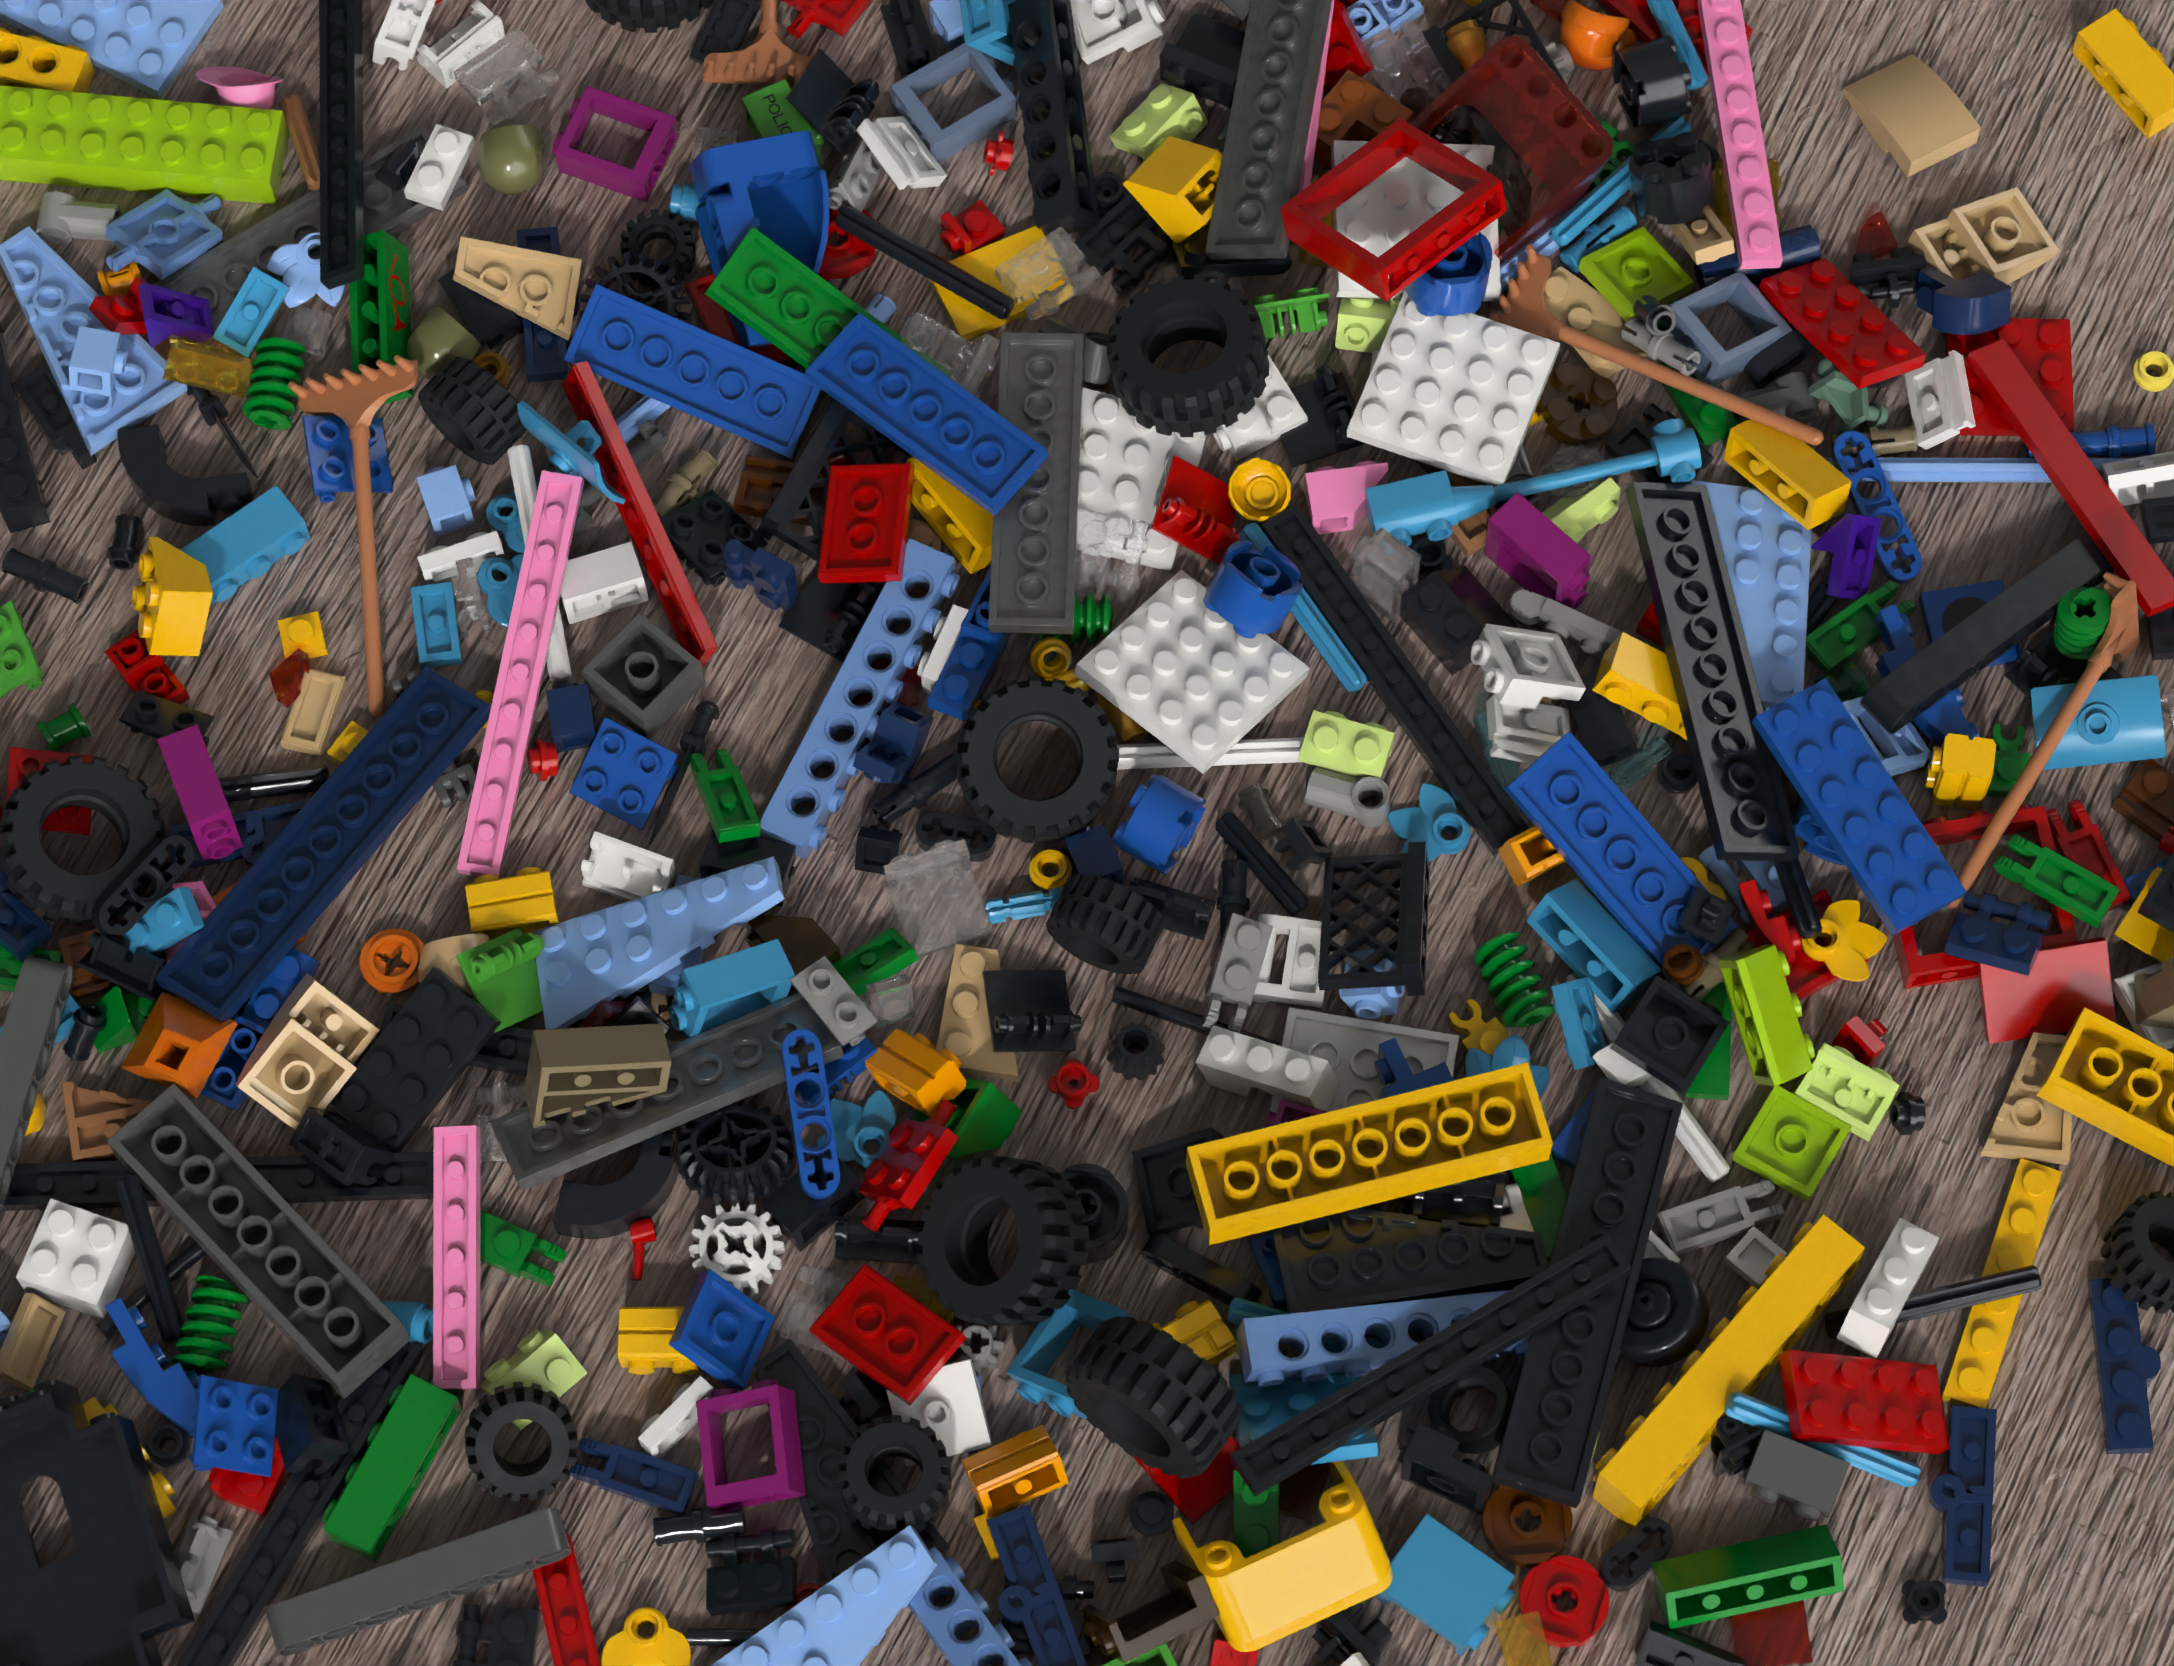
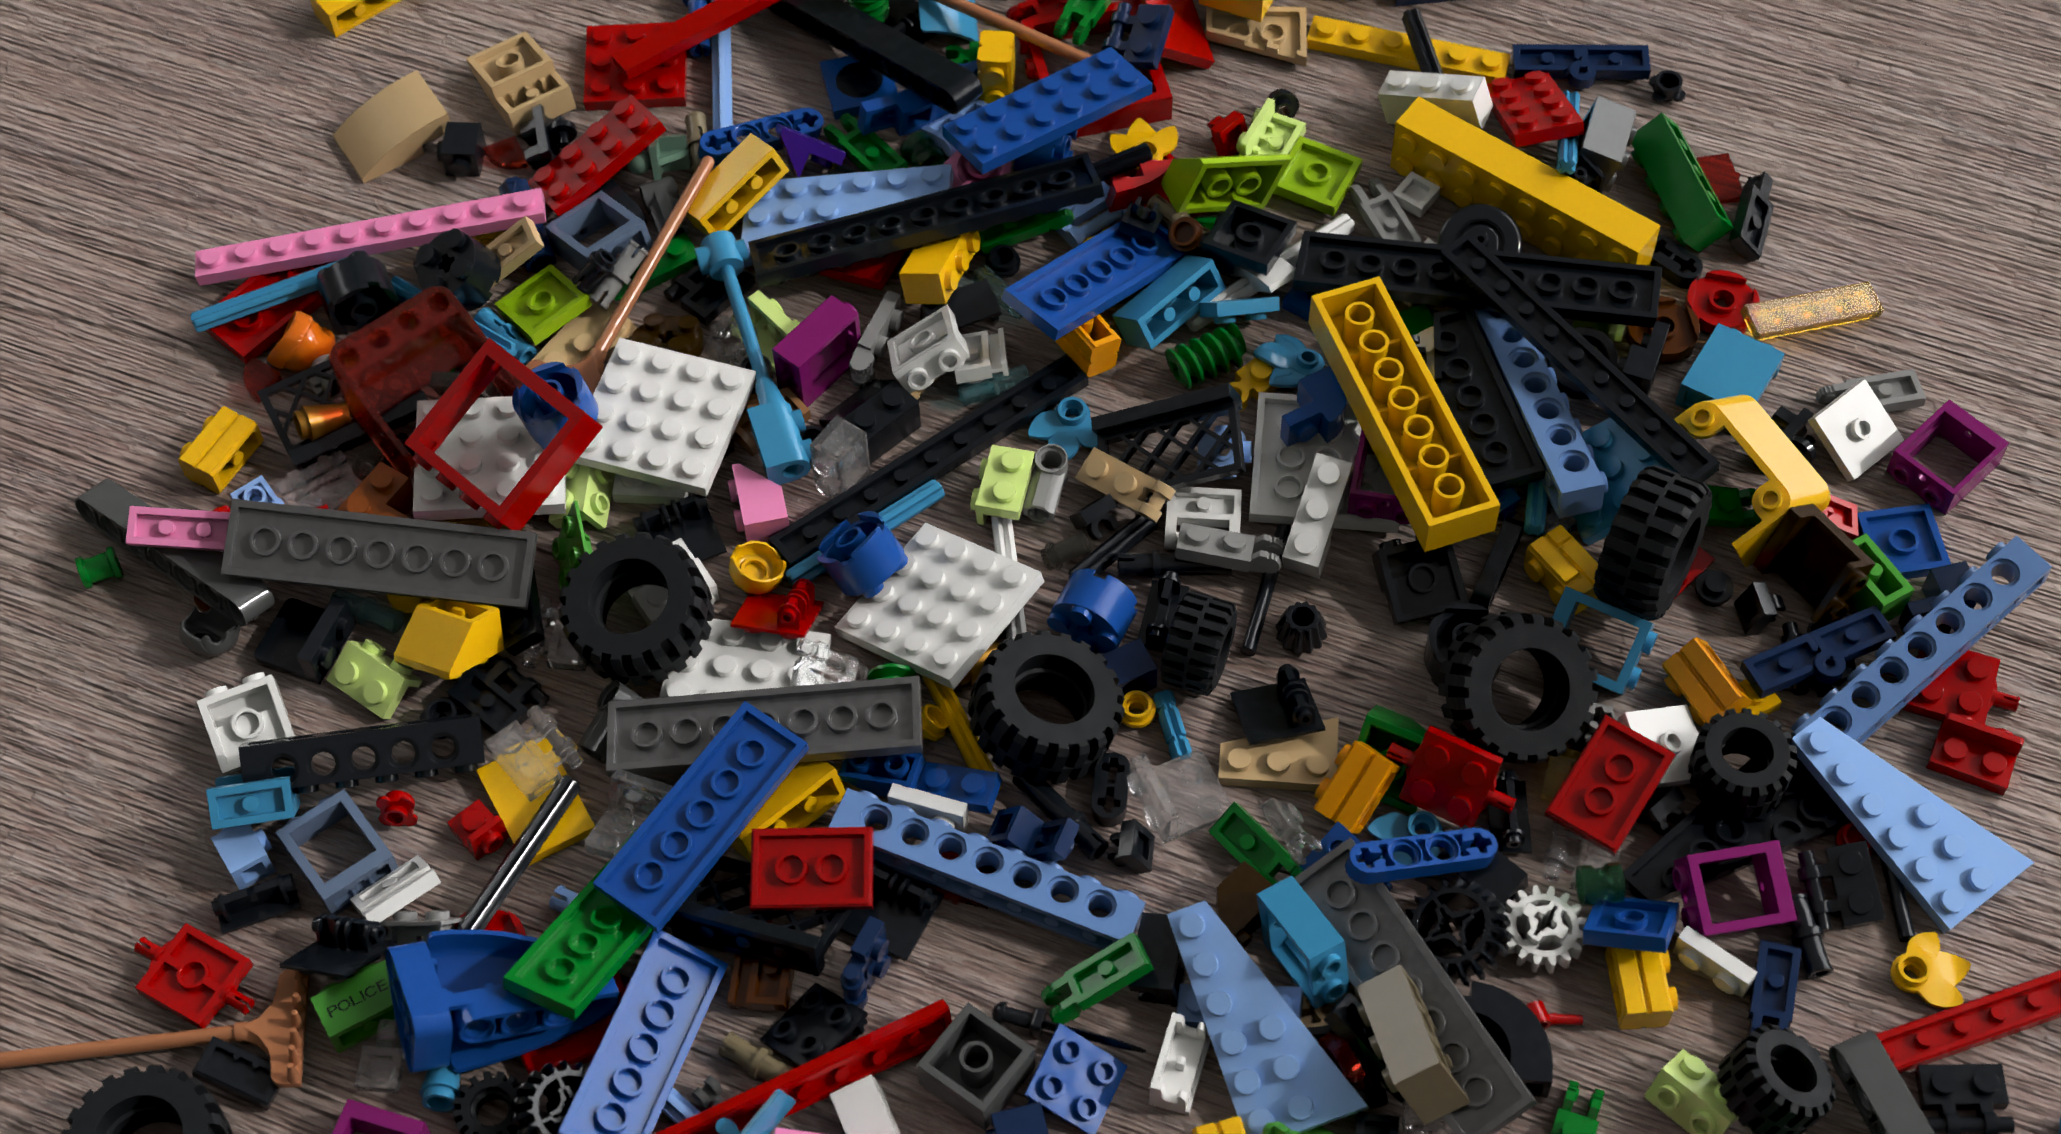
camera: 95 degrees left, 10 degrees down
(772, 1306) = (1600, 883): none -> clear green wheel
(834, 1002) = (1308, 845): light grey hinge -> none
(1074, 1071) = (1337, 666): red plate -> none
(1332, 873) = (1125, 484): none -> tan plate
(1873, 187) = (462, 149): none -> black brick
(1939, 400) = (666, 94): white plate -> none
(1963, 305) = (581, 81): dark blue brick -> none

